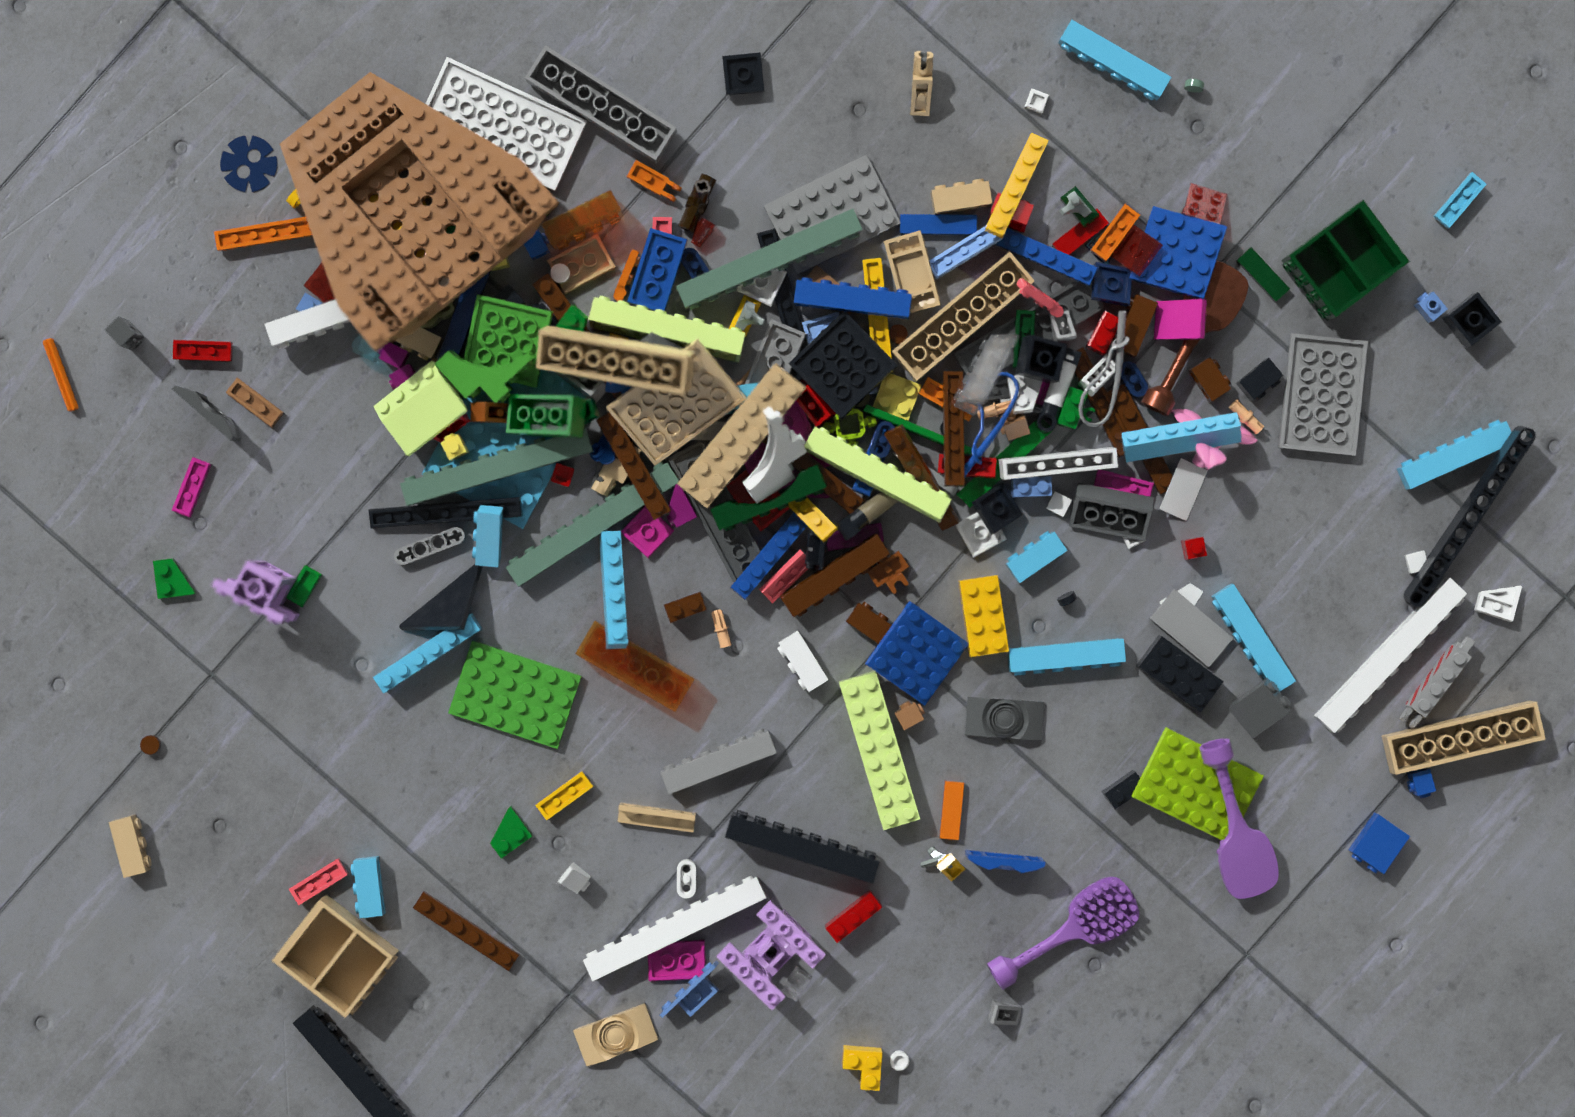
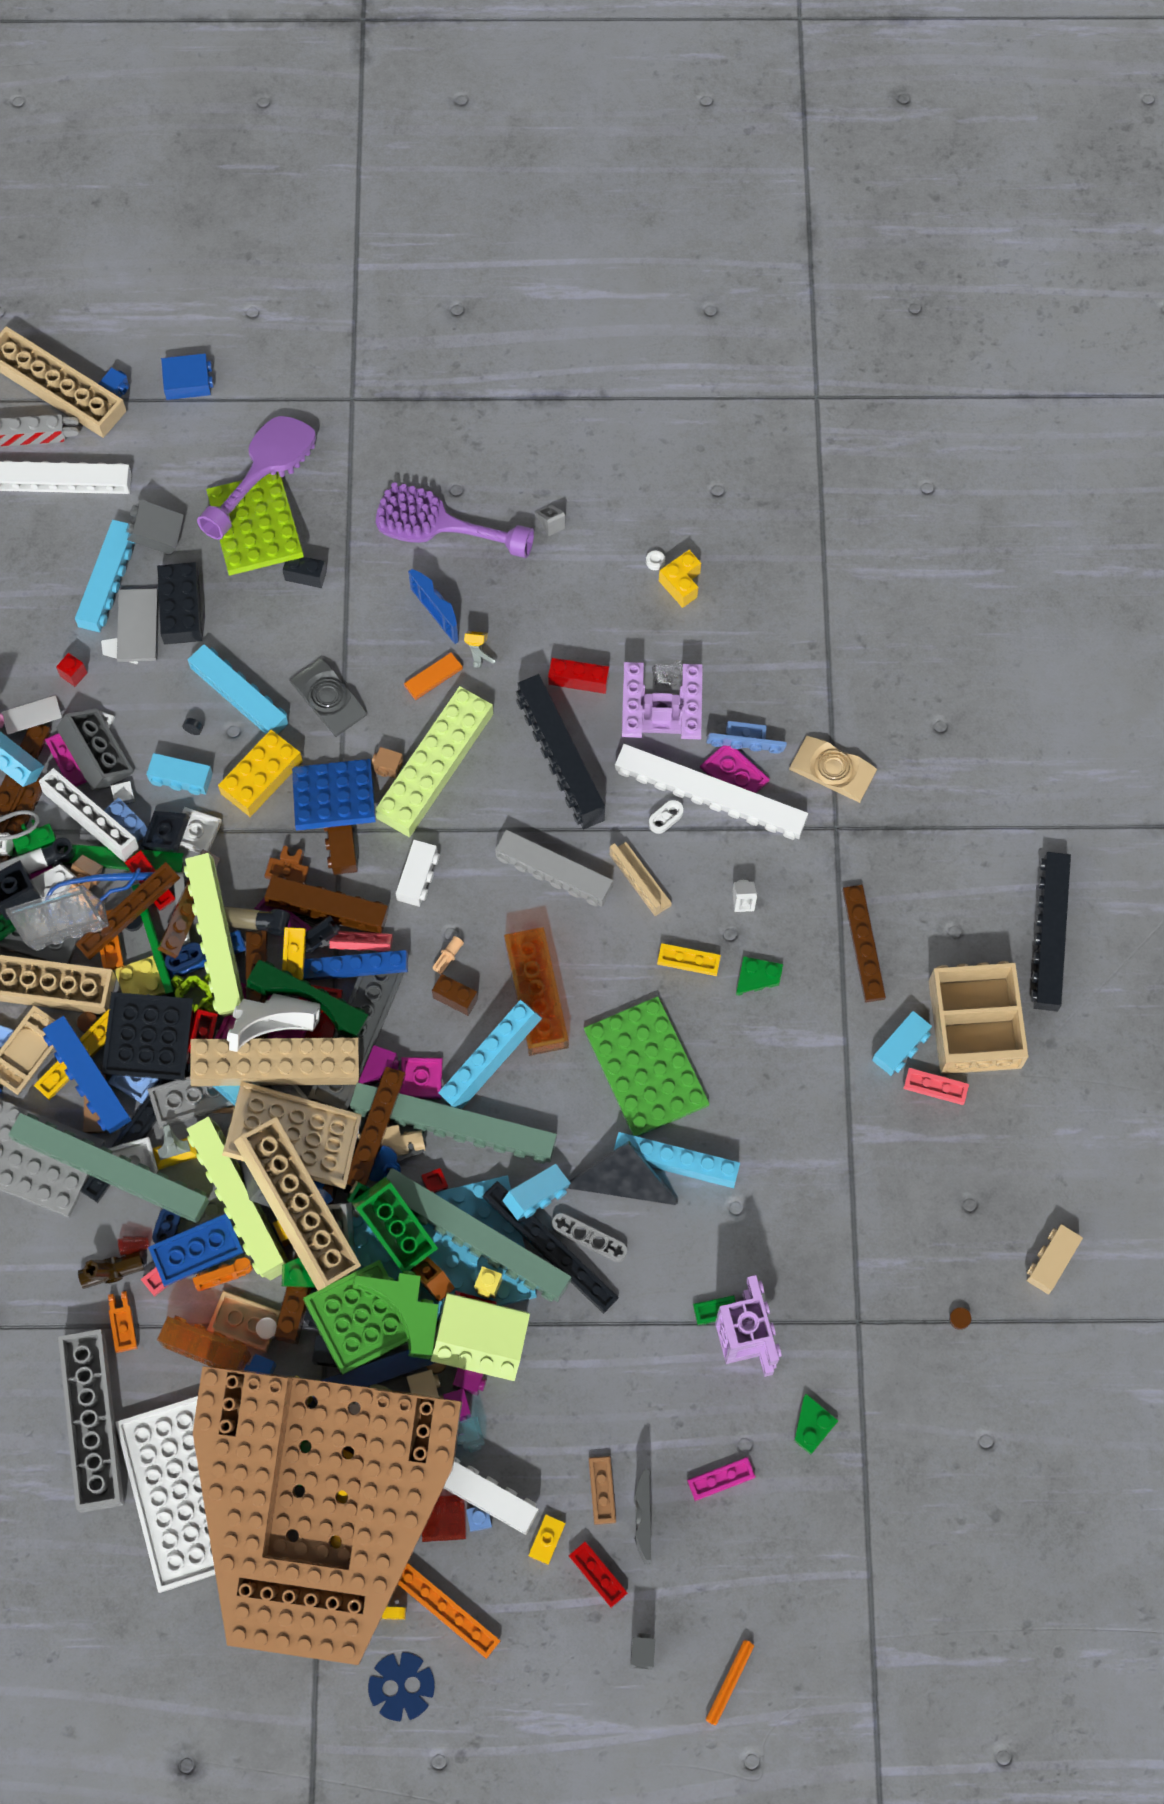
camera: 135 degrees left, 20 degrees down
(255, 338) = (546, 1539): none -> yellow plate

